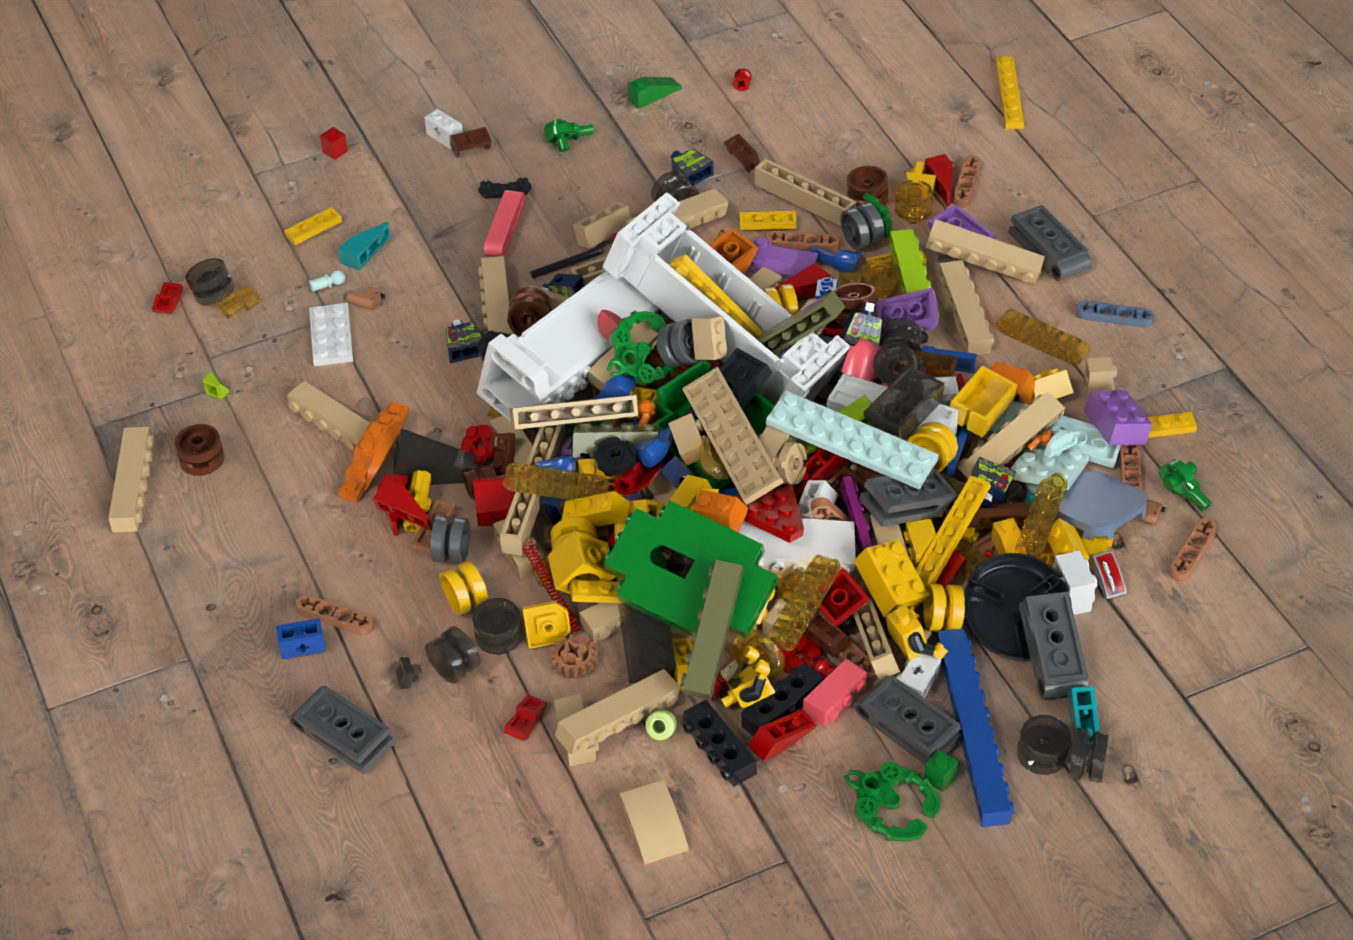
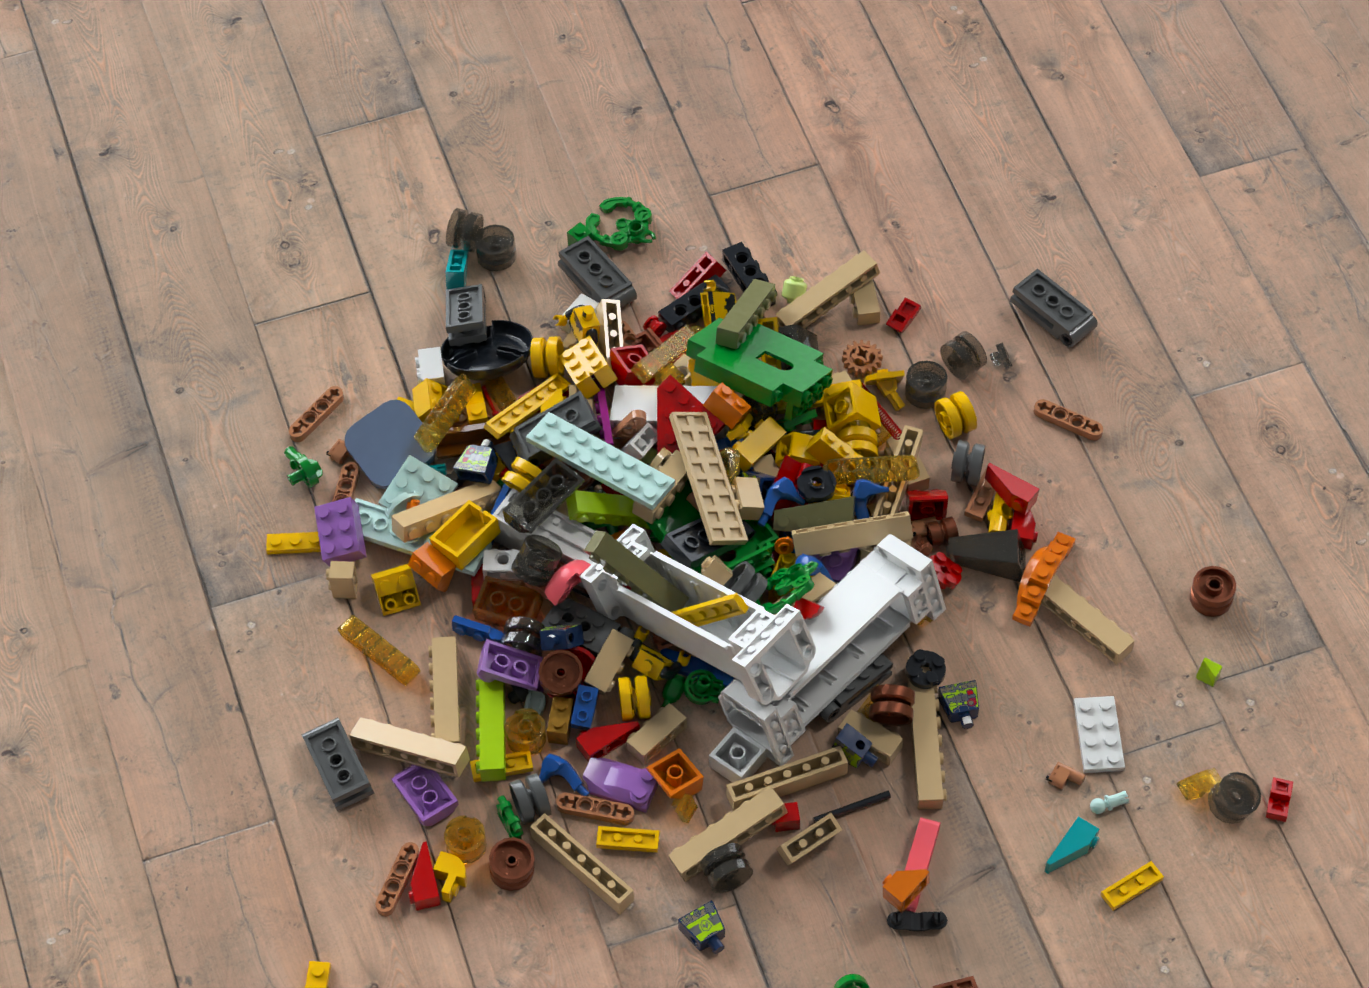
camera: 175 degrees left, 10 degrees up
(131, 479) = (1274, 570): tan brick -> none
(300, 638) = (1094, 387): blue brick -> none
(514, 178) = (904, 887): none -> orange slope
(653, 821) = (807, 222): tan slope -> none
(742, 151) = (641, 942): copper hinge -> none
(835, 693) = (647, 306): coral brick -> none
(976, 734) = (545, 267): blue brick -> none
(1109, 573) = (398, 386): slope -> none
(1143, 318) = (299, 674): sand blue beam -> none

